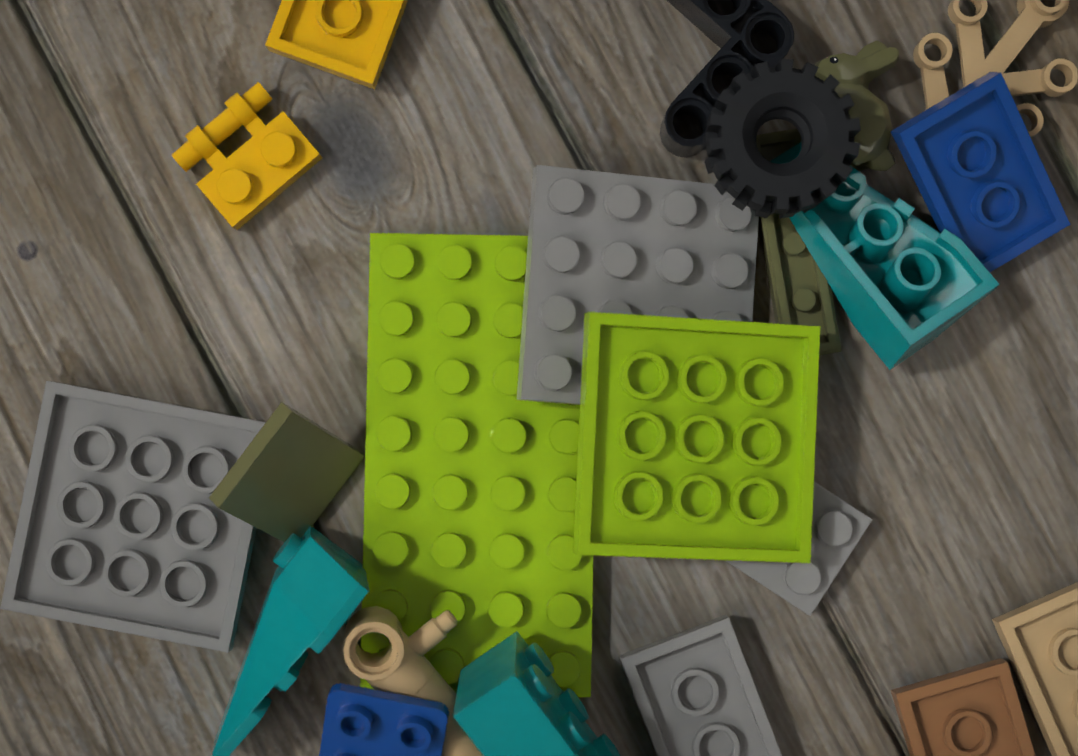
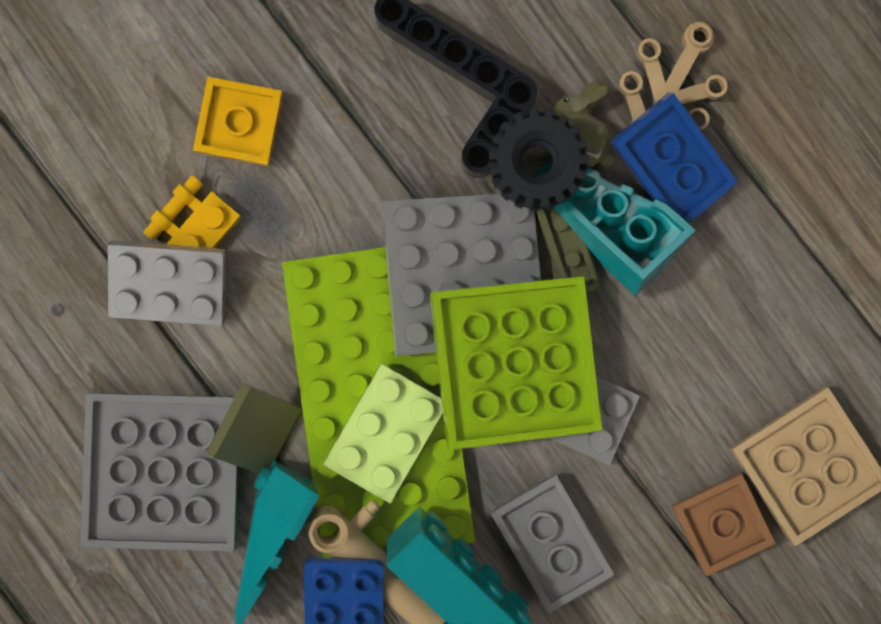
camera: 10 degrees left, 0 degrees up
(193, 235) = (166, 283): none -> light grey plate
(483, 514) = (385, 433): none -> yellowish green plate

